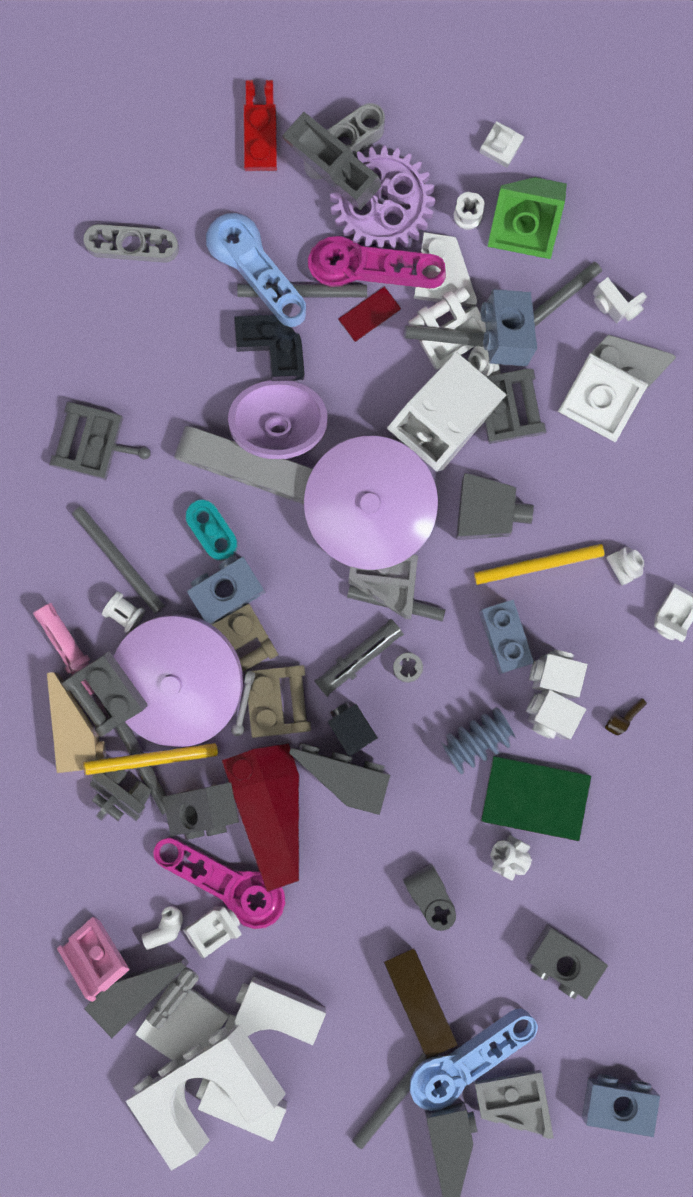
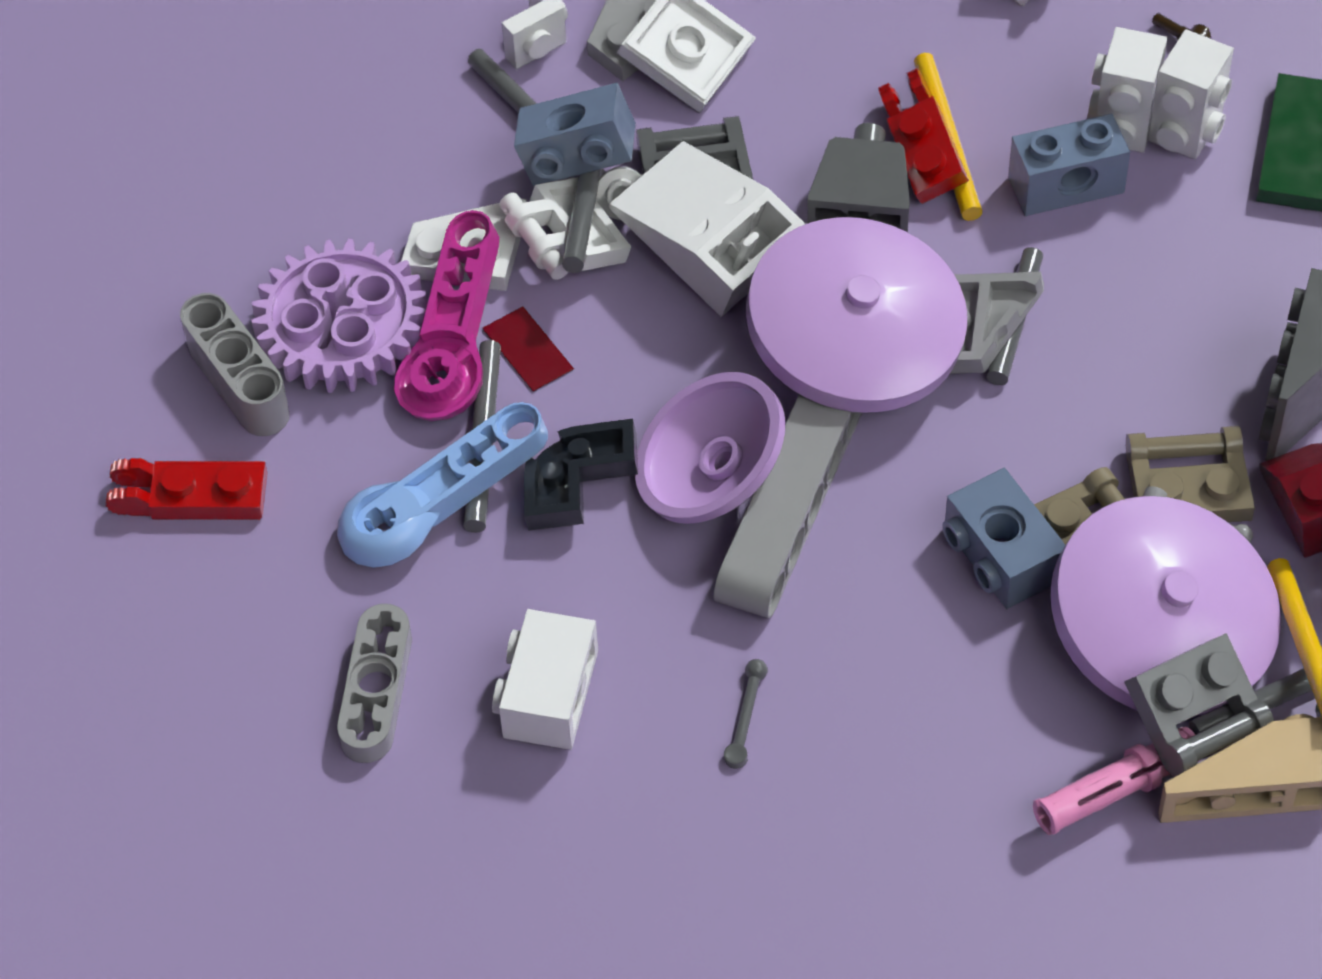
camera: 85 degrees left, 30 degrees down
(96, 442) = (739, 735): dark grey plate -> none
(118, 560) = (948, 710): dark grey bar -> none
(123, 335) = (546, 679): none -> white brick
(123, 612) = (1069, 686): white bush -> none
(212, 530) = (892, 561): teal plate -> none
(328, 683) = (1125, 374): dark grey pin -> none
(332, 160) = (277, 348): dark grey slope -> none
(351, 728) = (1234, 349): black brick -> none
(418, 667) = (1124, 312): light grey bush -> none
(469, 201) = (367, 206): white bush -> none
(478, 740) = (1235, 199): sand blue piece -> none
(501, 144) = (264, 168): white tile -> none
(528, 216) = (395, 120): bright green slope -> none
(531, 547) = (929, 146): none -> red hinge
(626, 564) = (948, 29): white plate -> none

